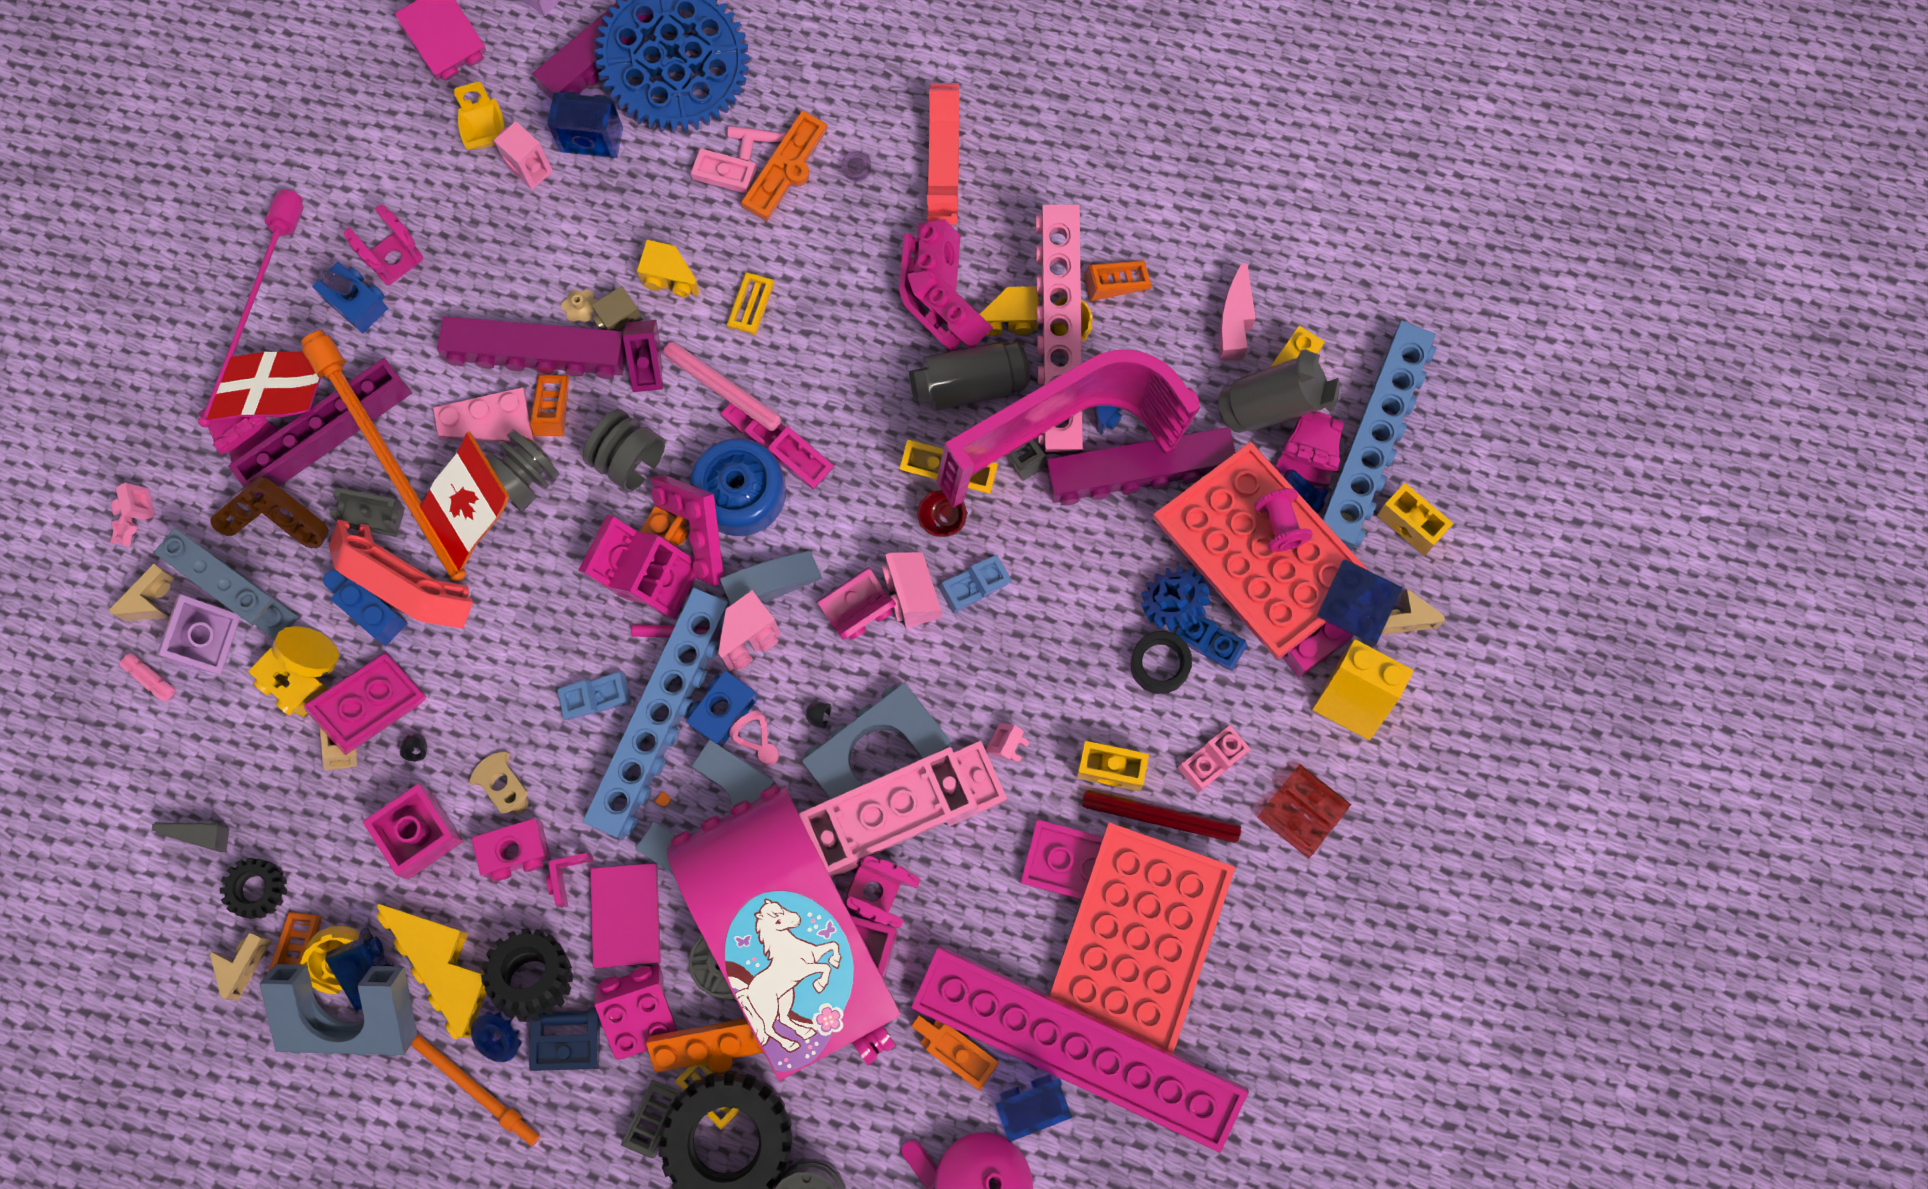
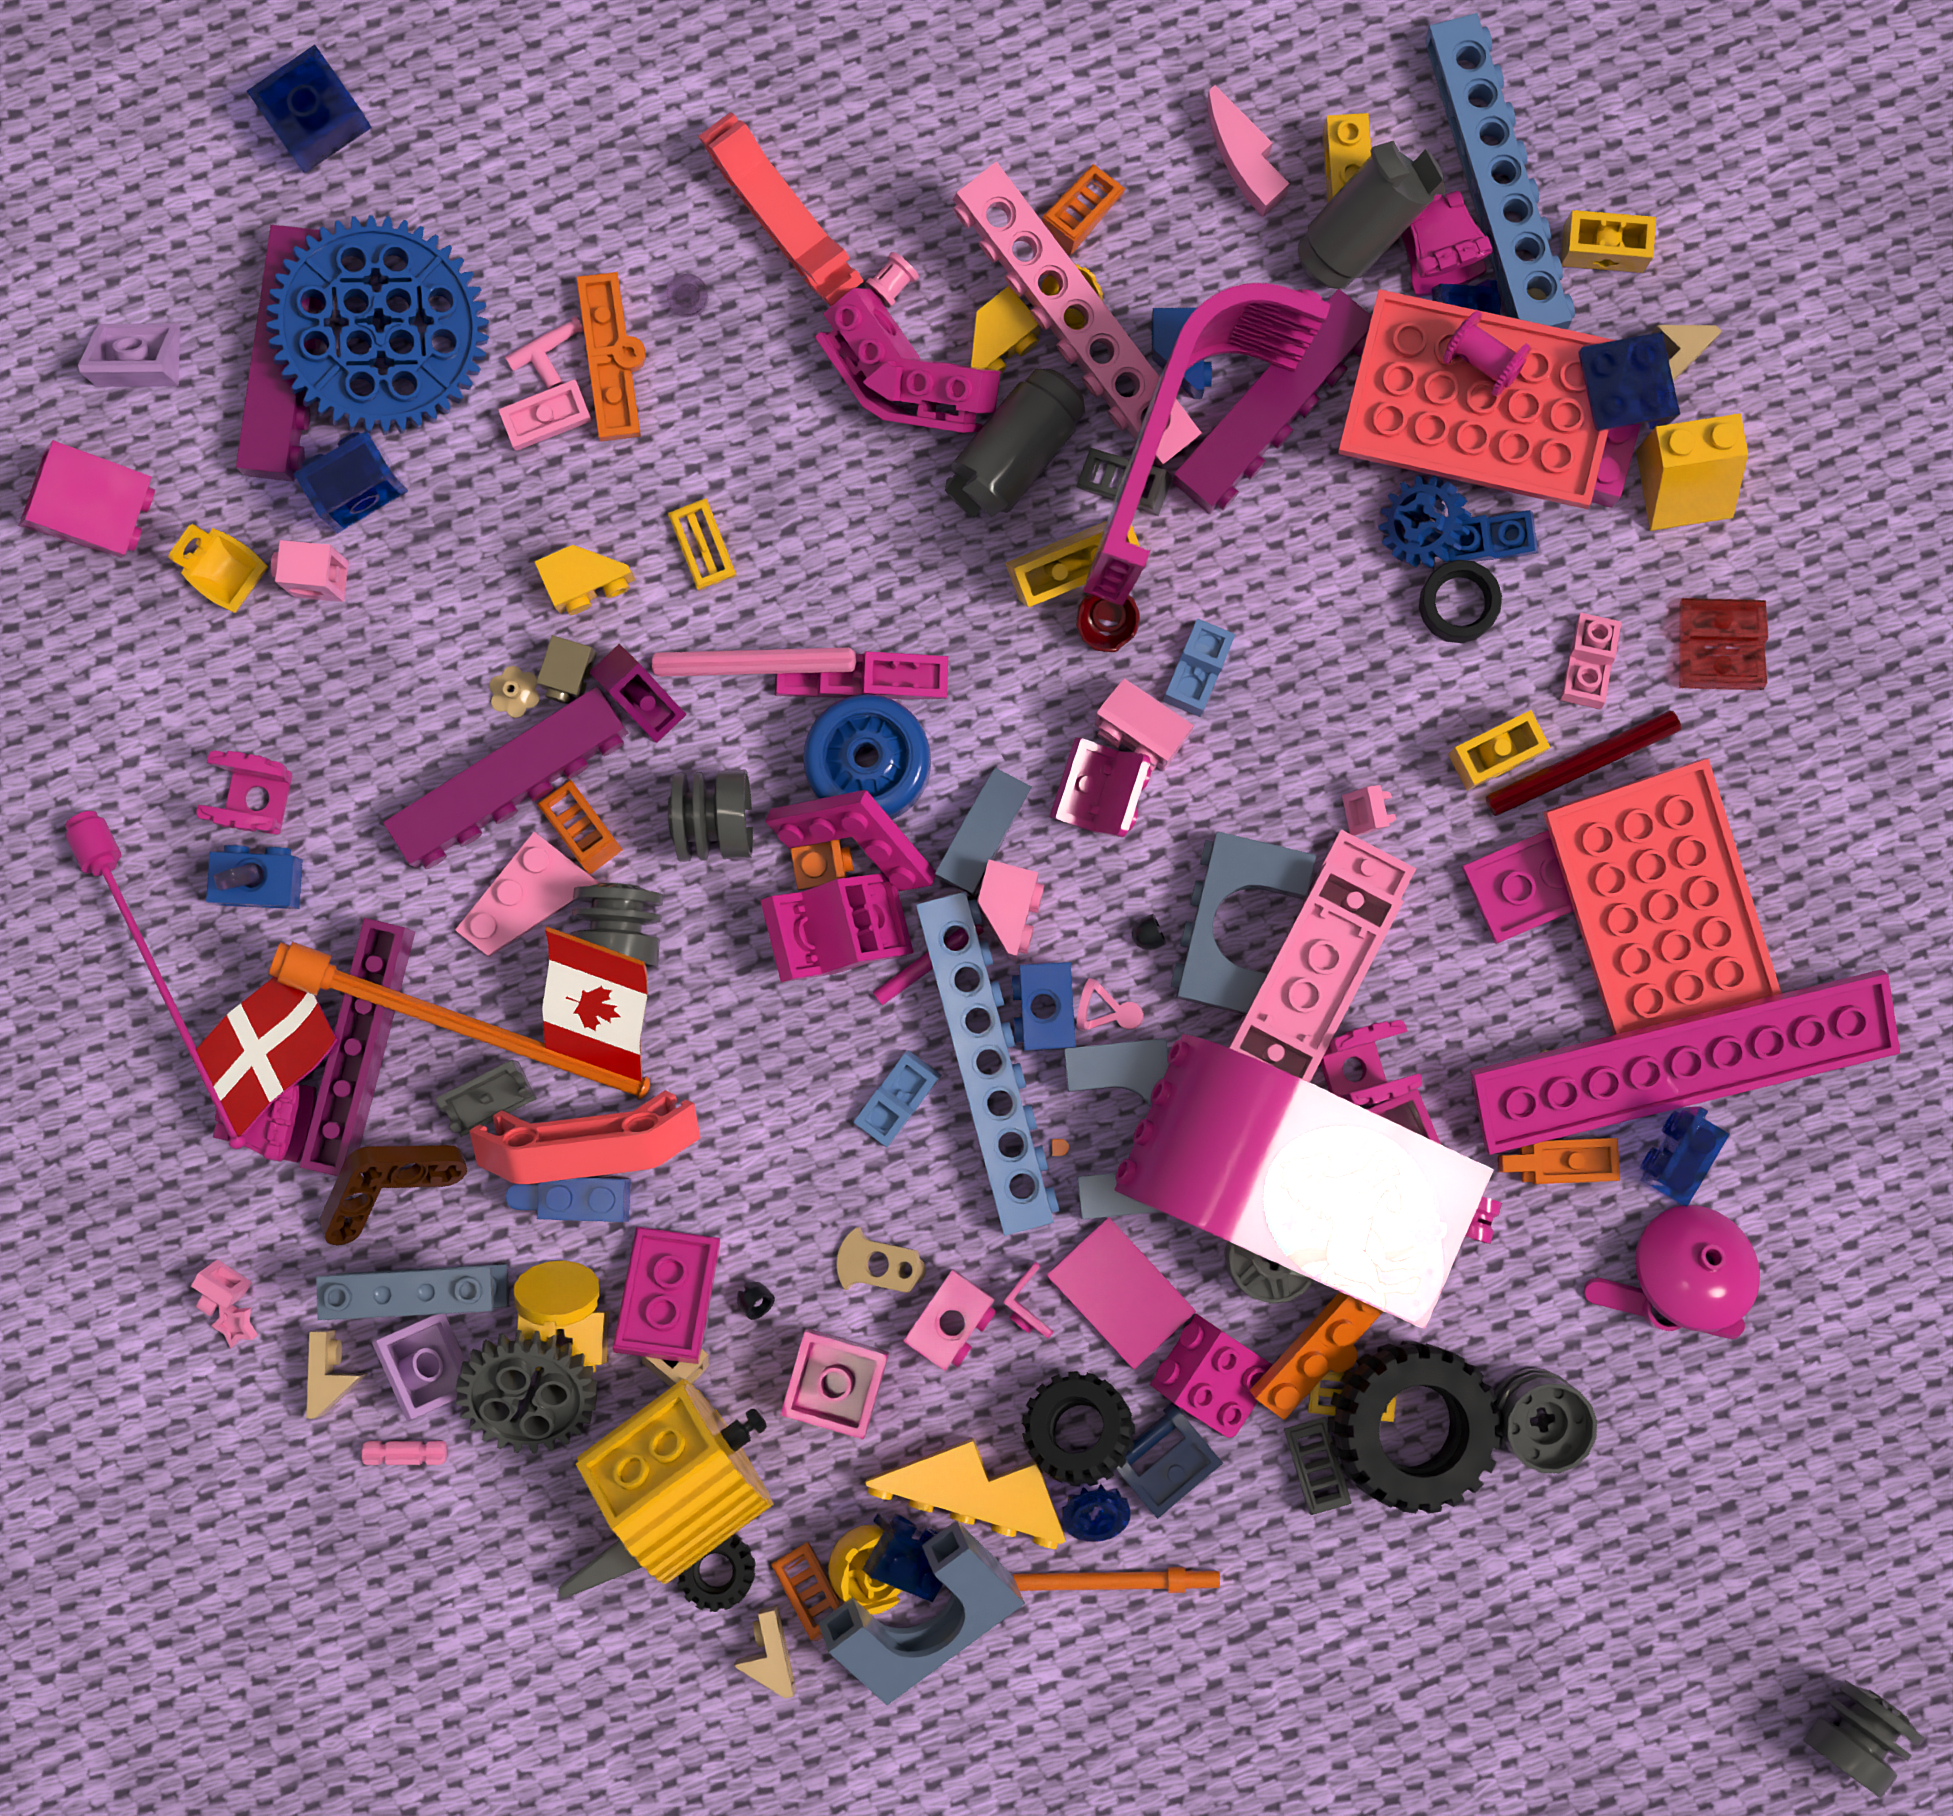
camera: 30 degrees left, 10 degrees up
(222, 673) = (500, 1377): none -> dark grey gear
(266, 810) = (675, 1480): none -> yellow piece
(976, 238) = (892, 279): none -> bright pink bush

